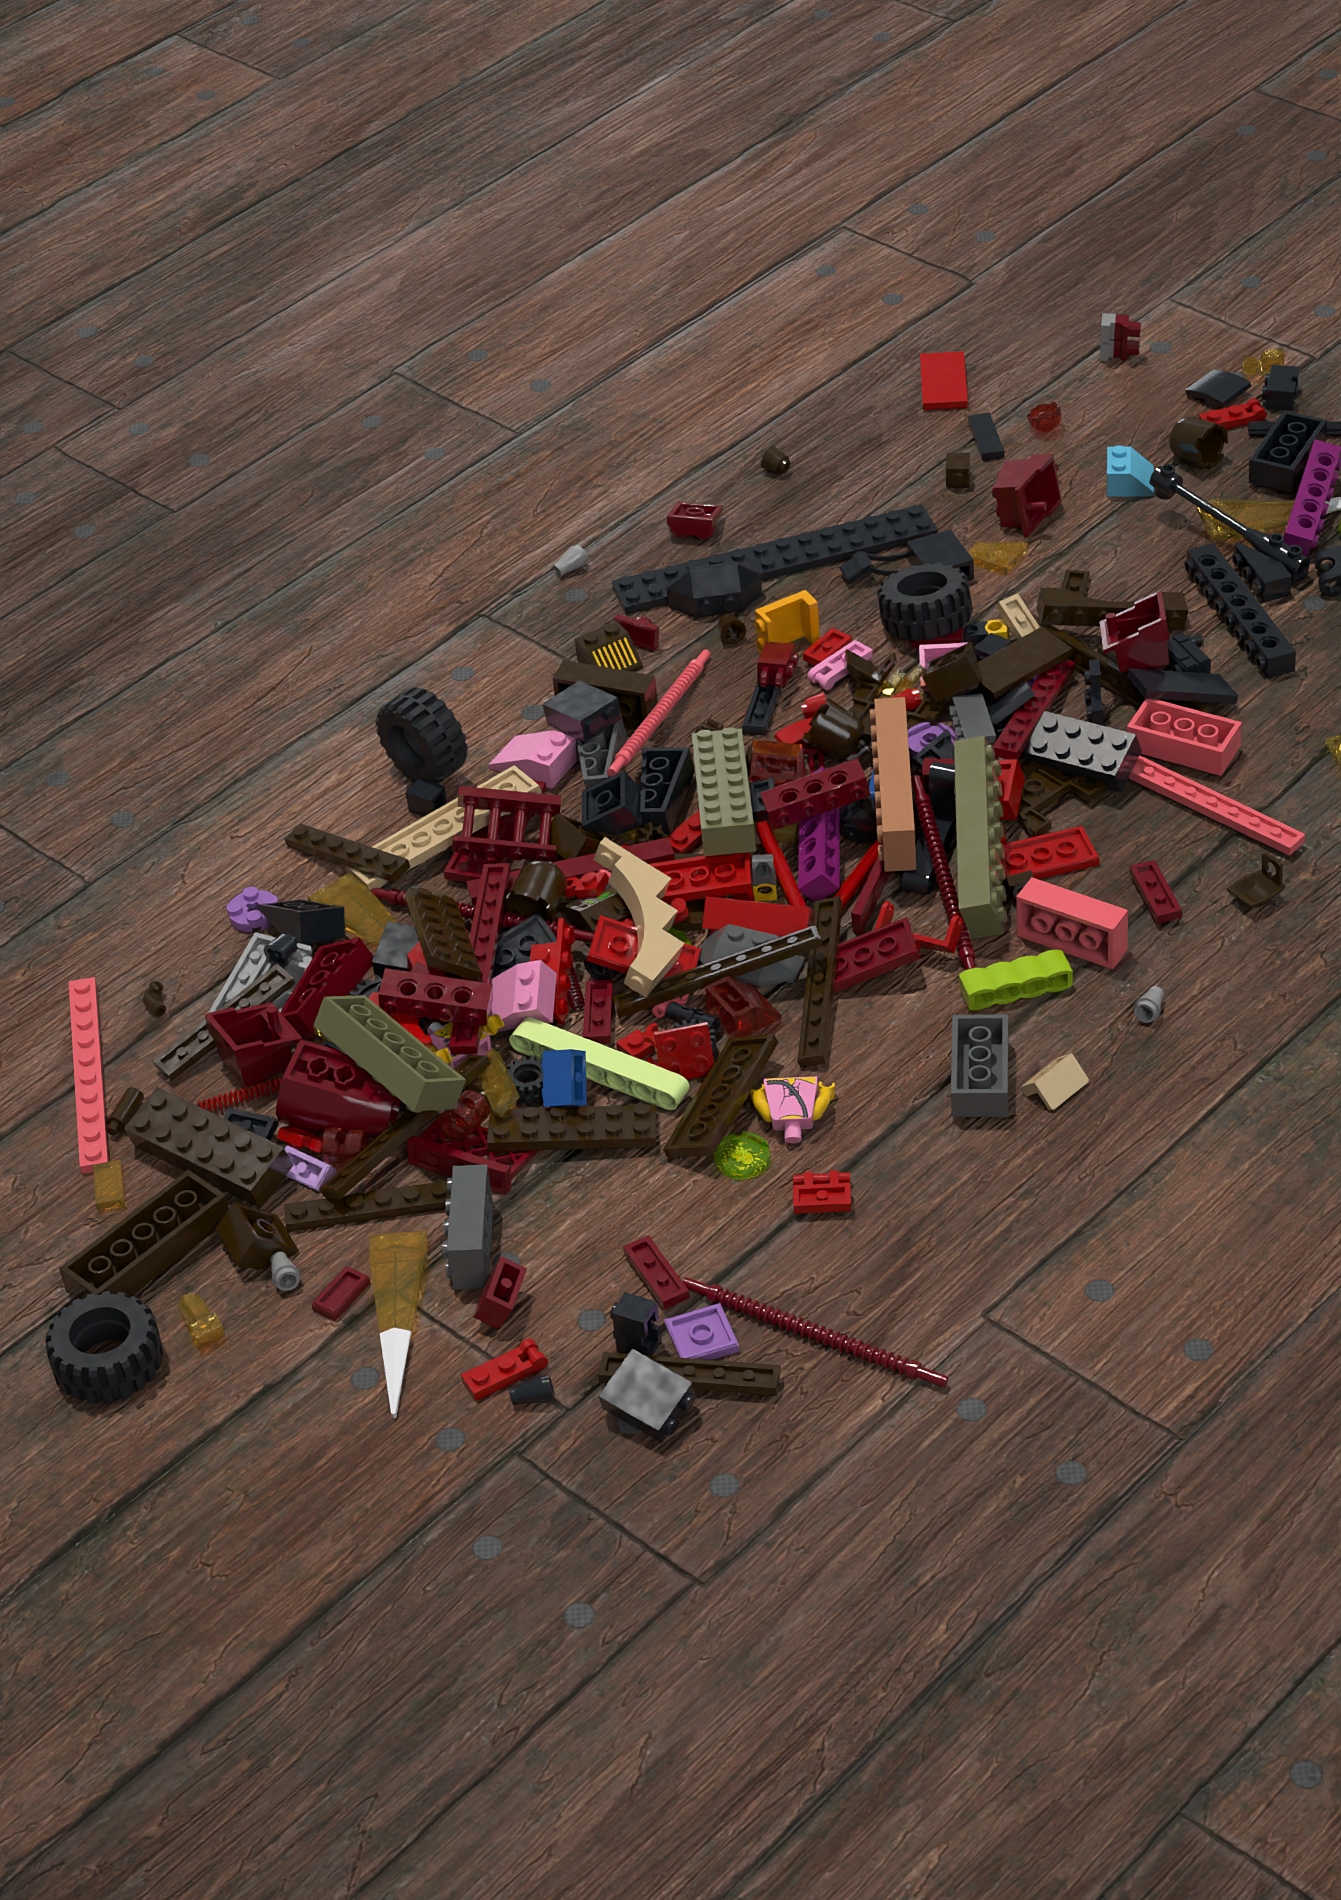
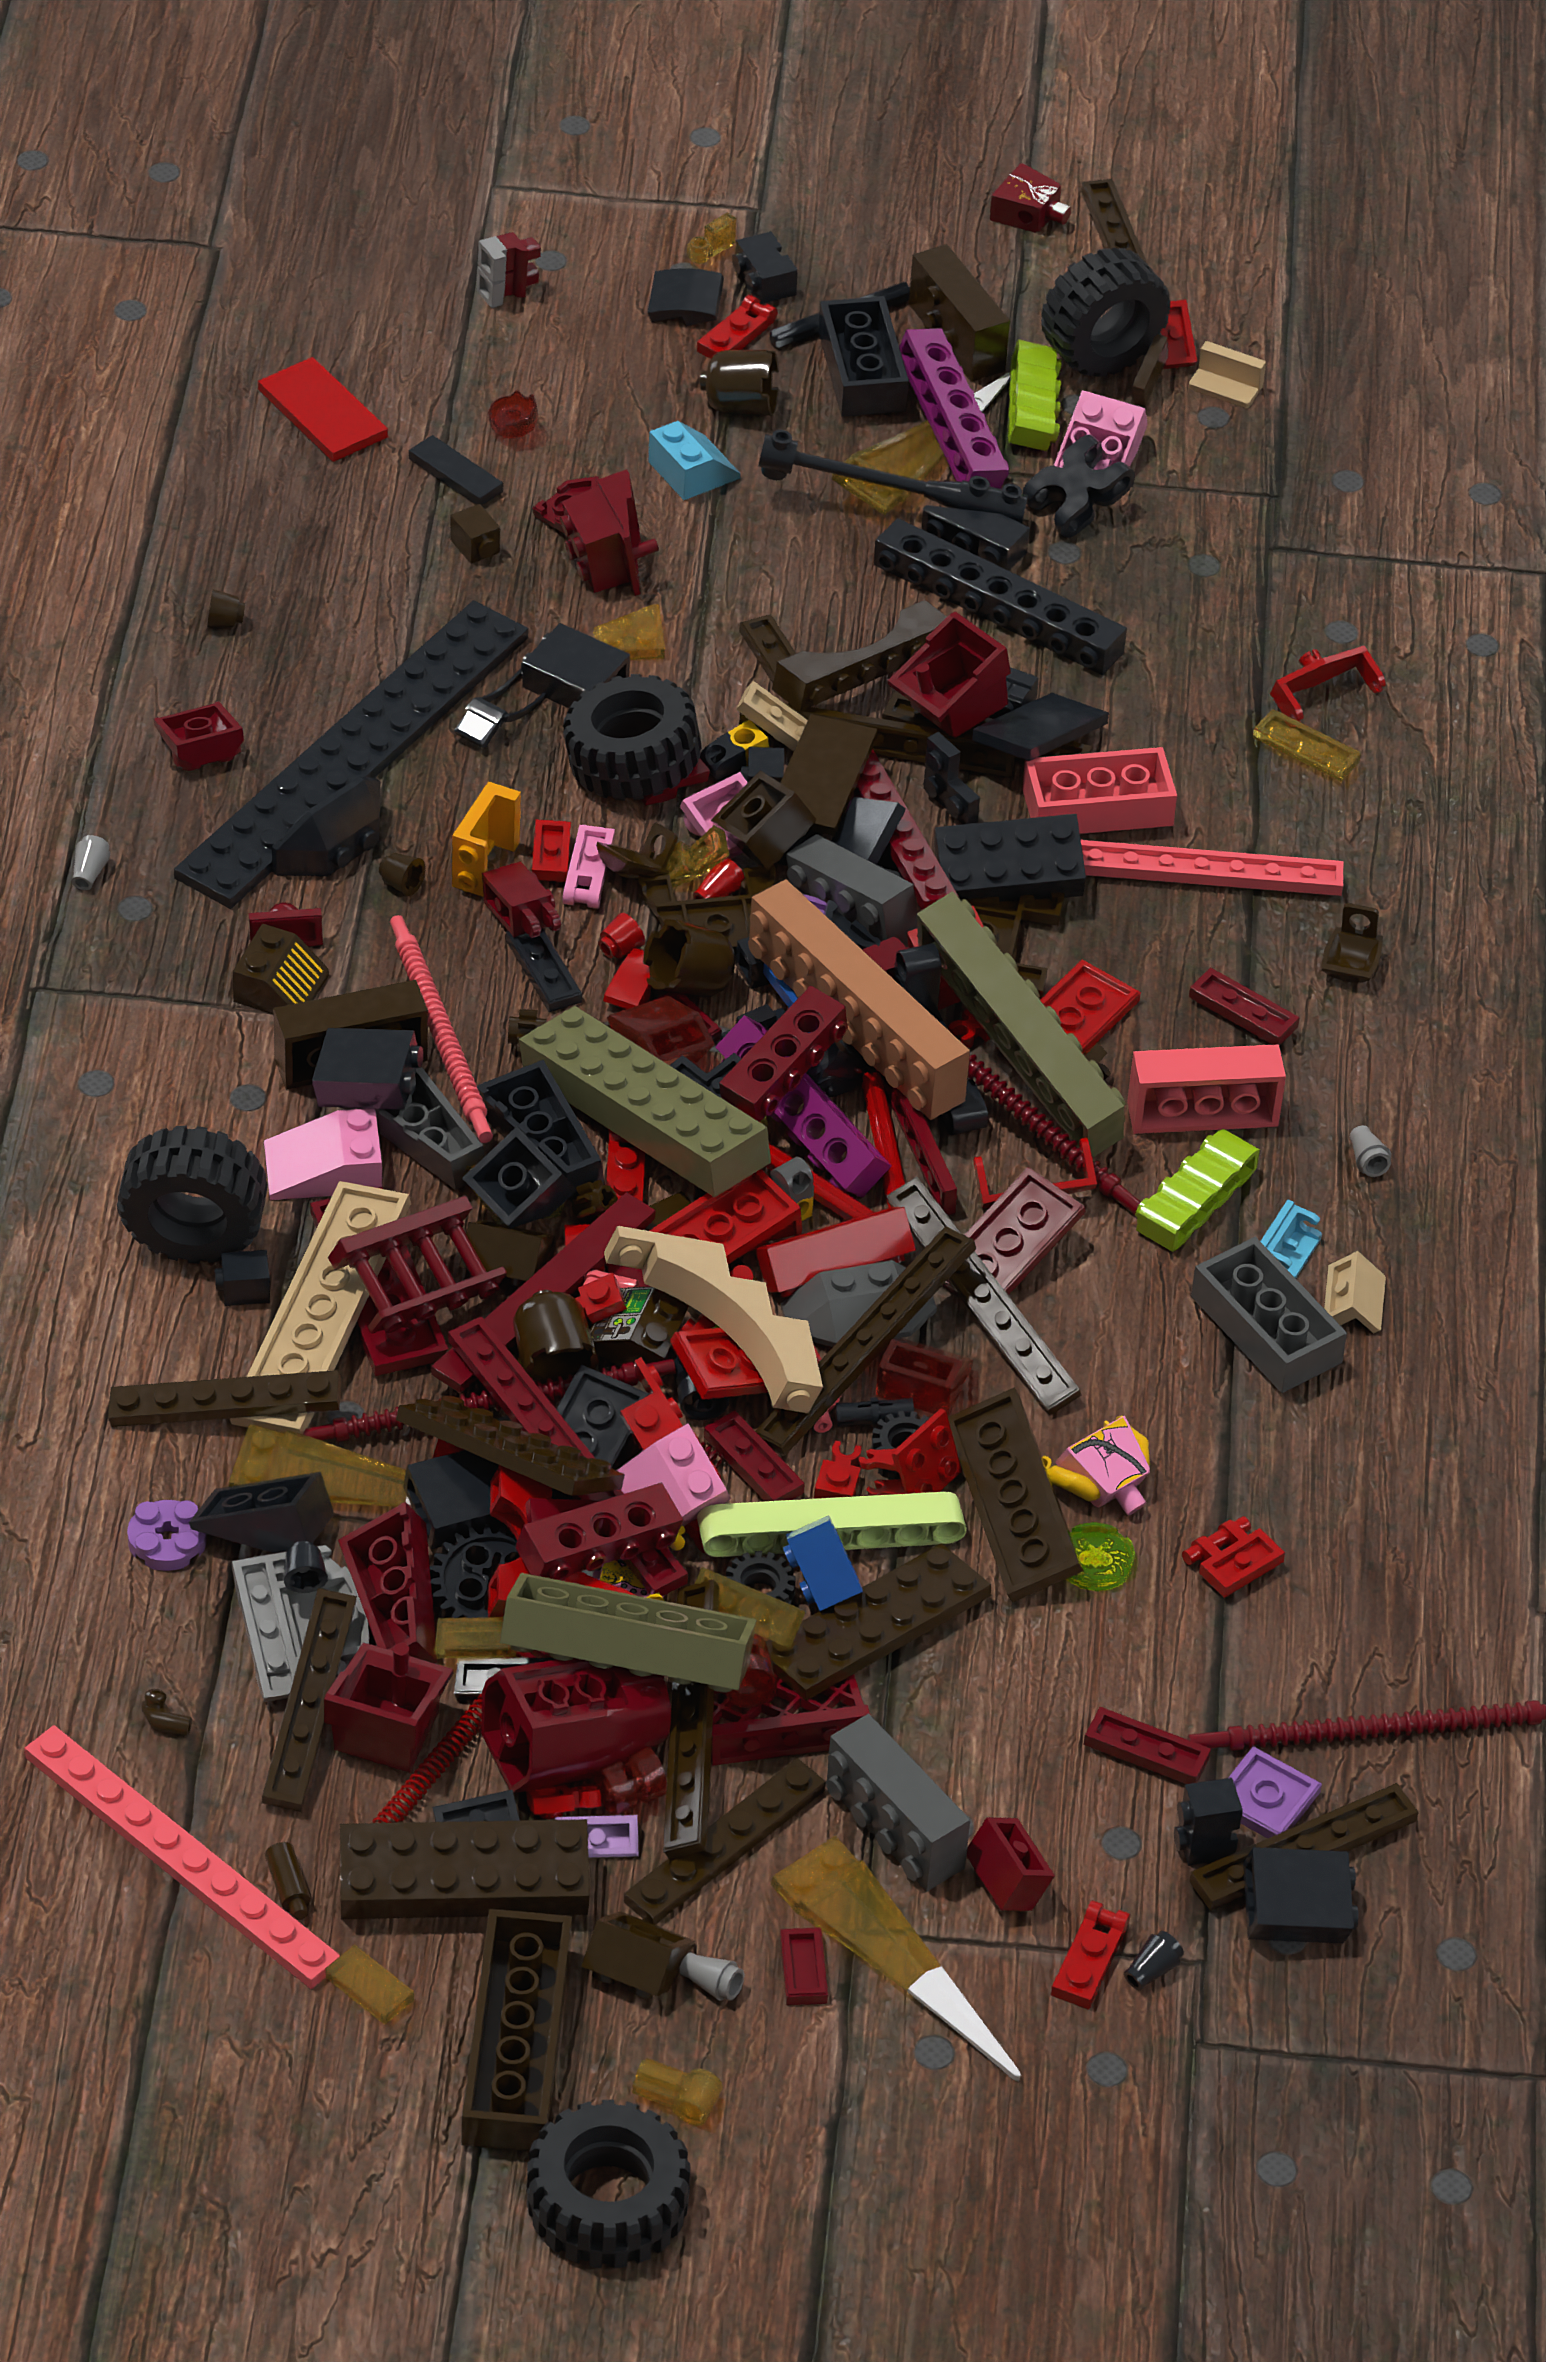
camera: 45 degrees left, 5 degrees up
(1040, 1033) = (1291, 1238): none -> medium azure hinge

